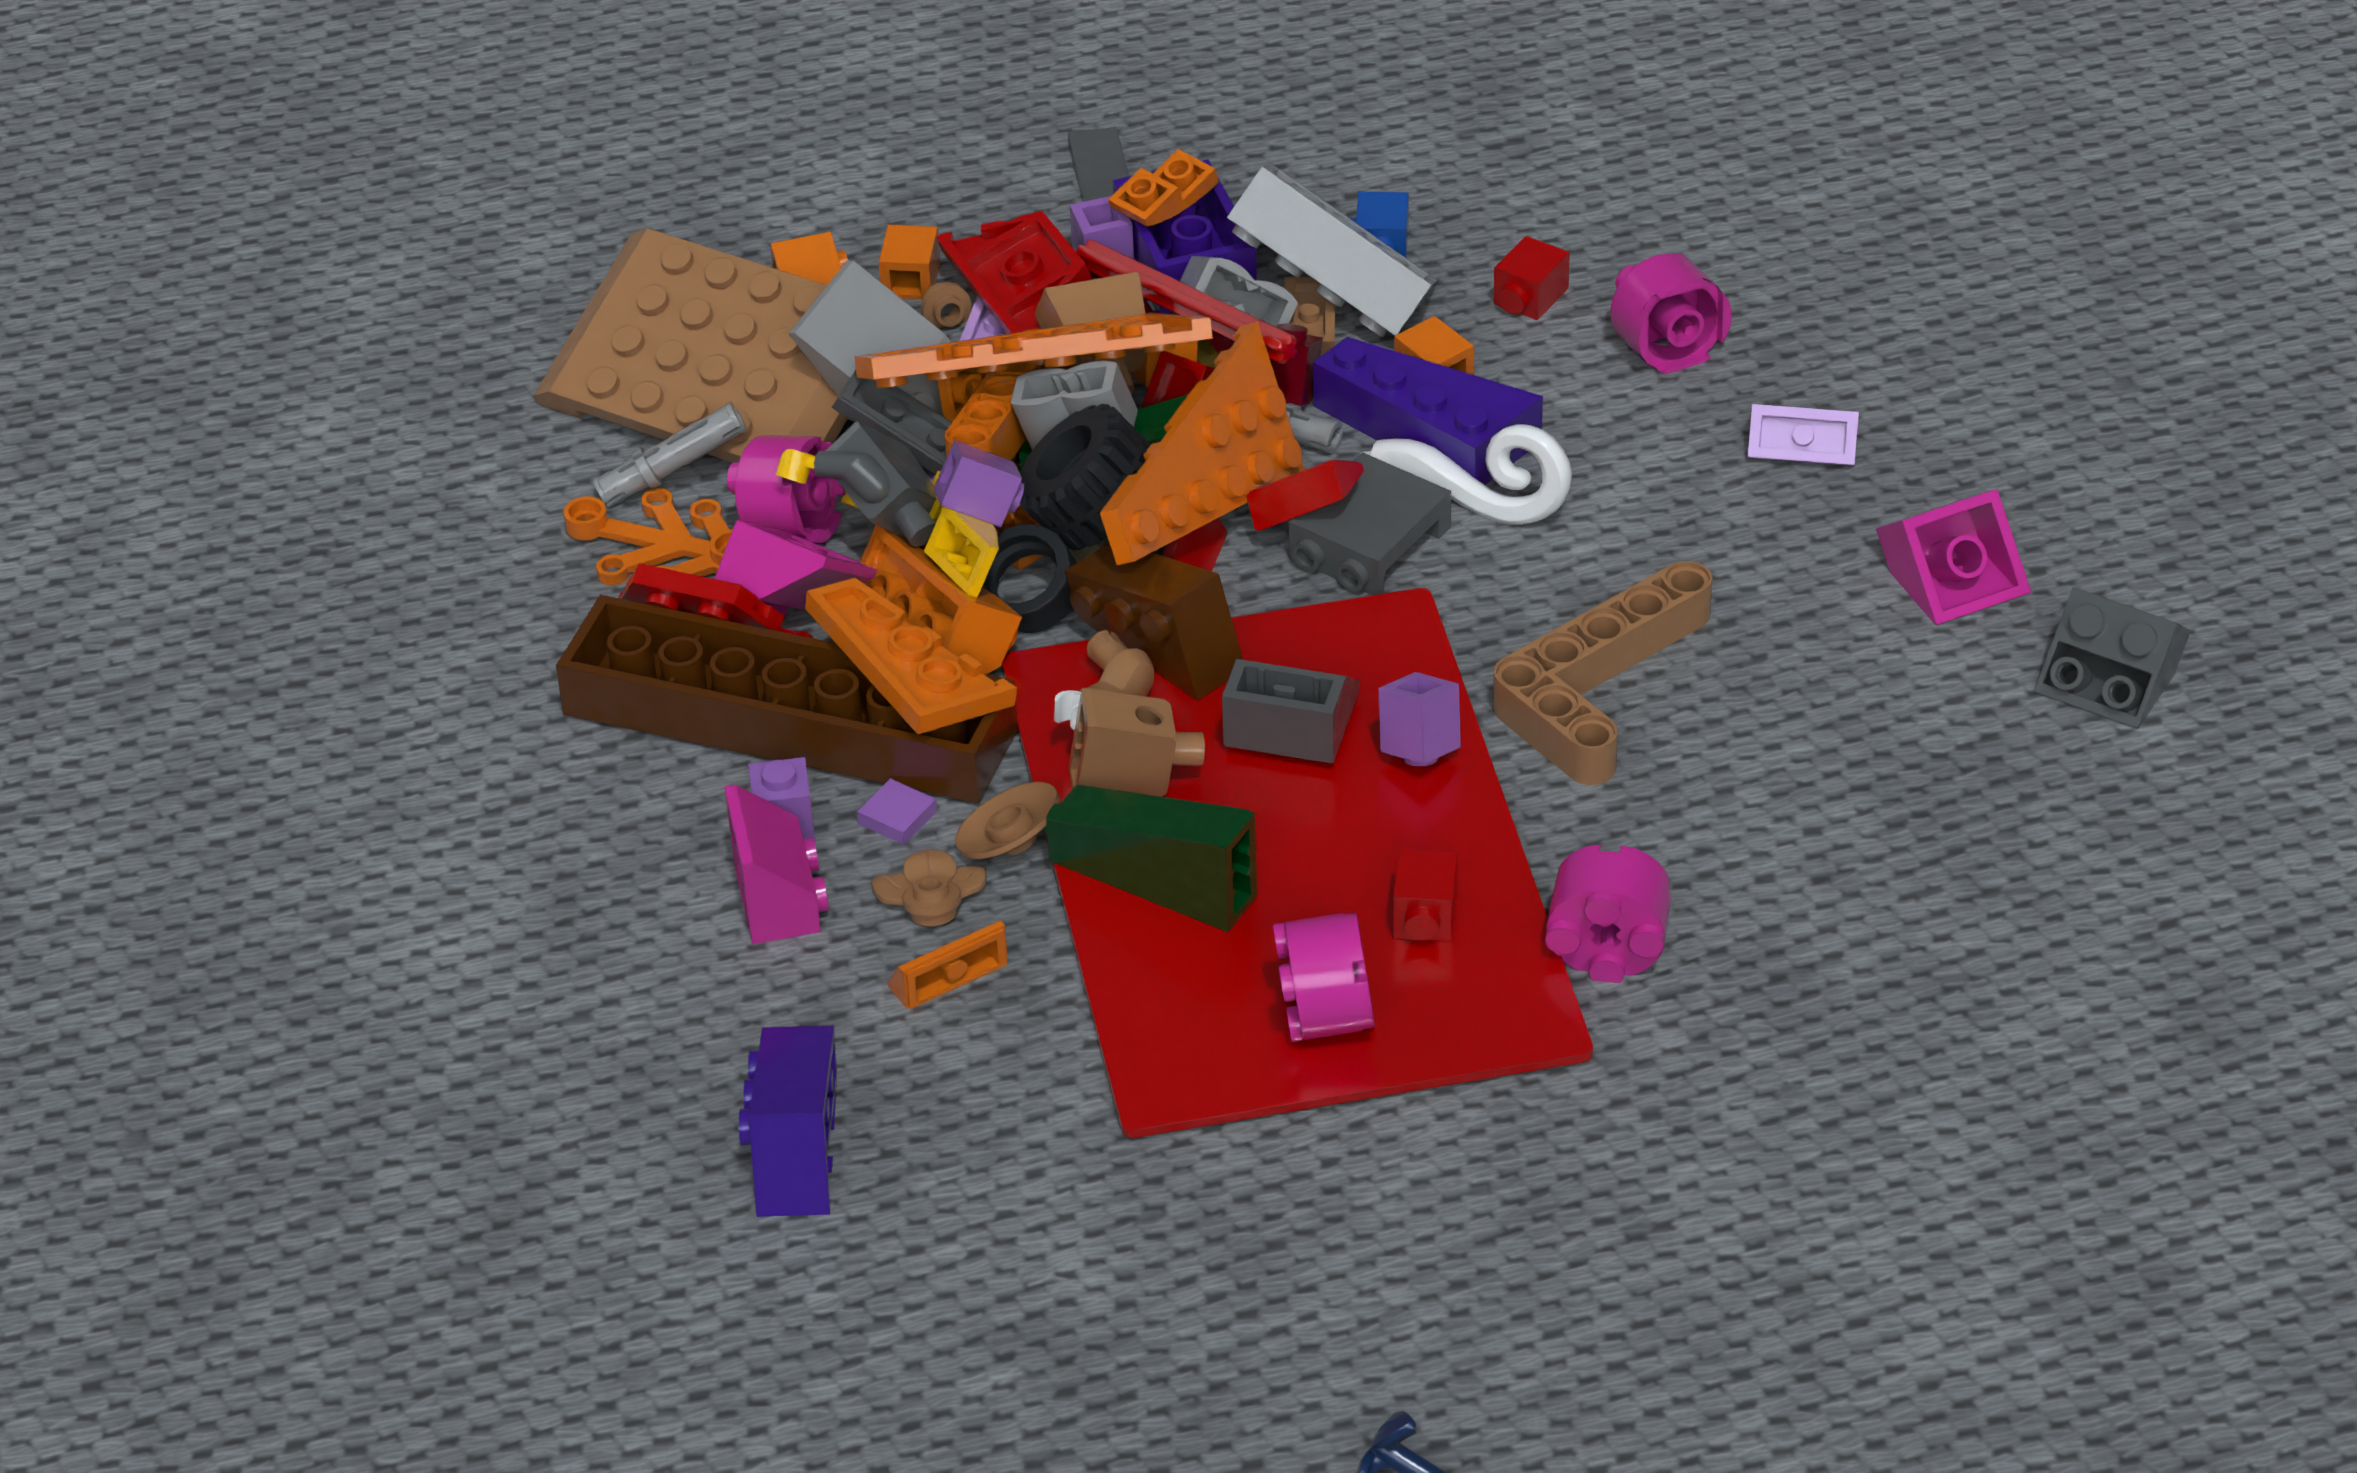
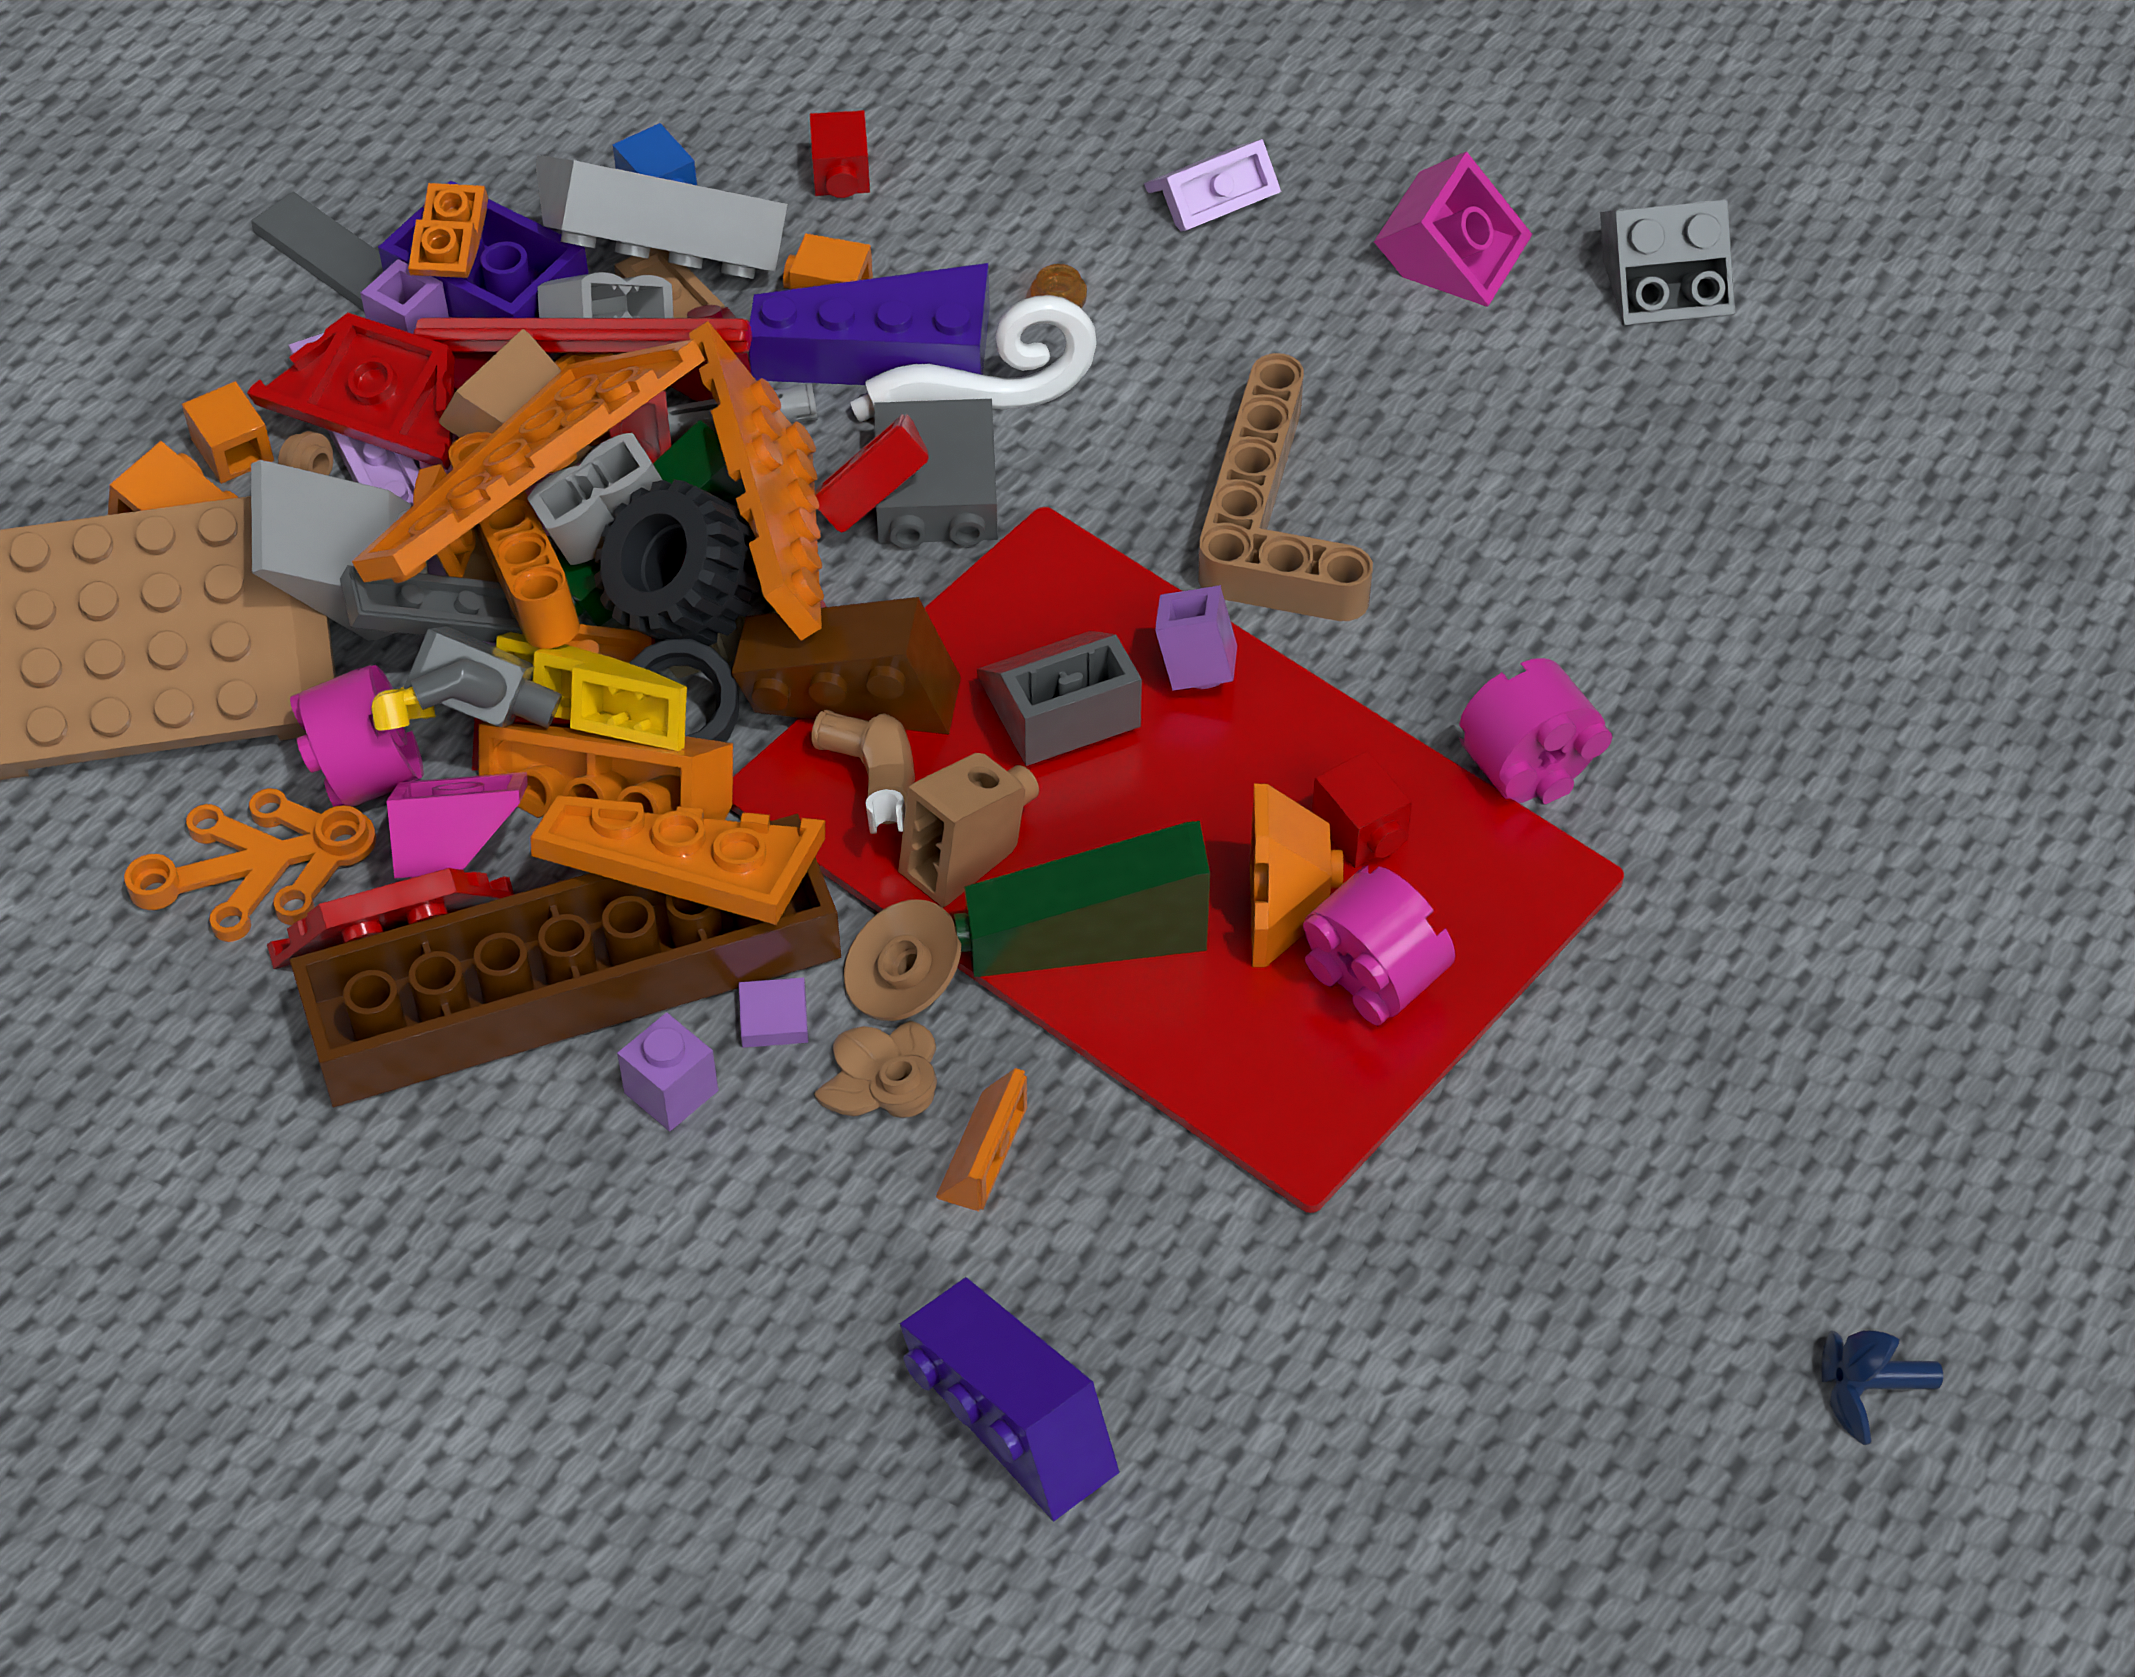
camera: 40 degrees left, 10 degrees up
(659, 461) = (192, 766): light grey pin -> none
(774, 868) = (734, 1151): dark pink slope -> none
(979, 484) = (589, 629): medium lavender brick -> none
(1316, 879) = (1288, 871): none -> orange slope
(1600, 451) = (1062, 282): none -> clear orange plate
(1670, 301) = (1006, 125): dark pink brick -> none

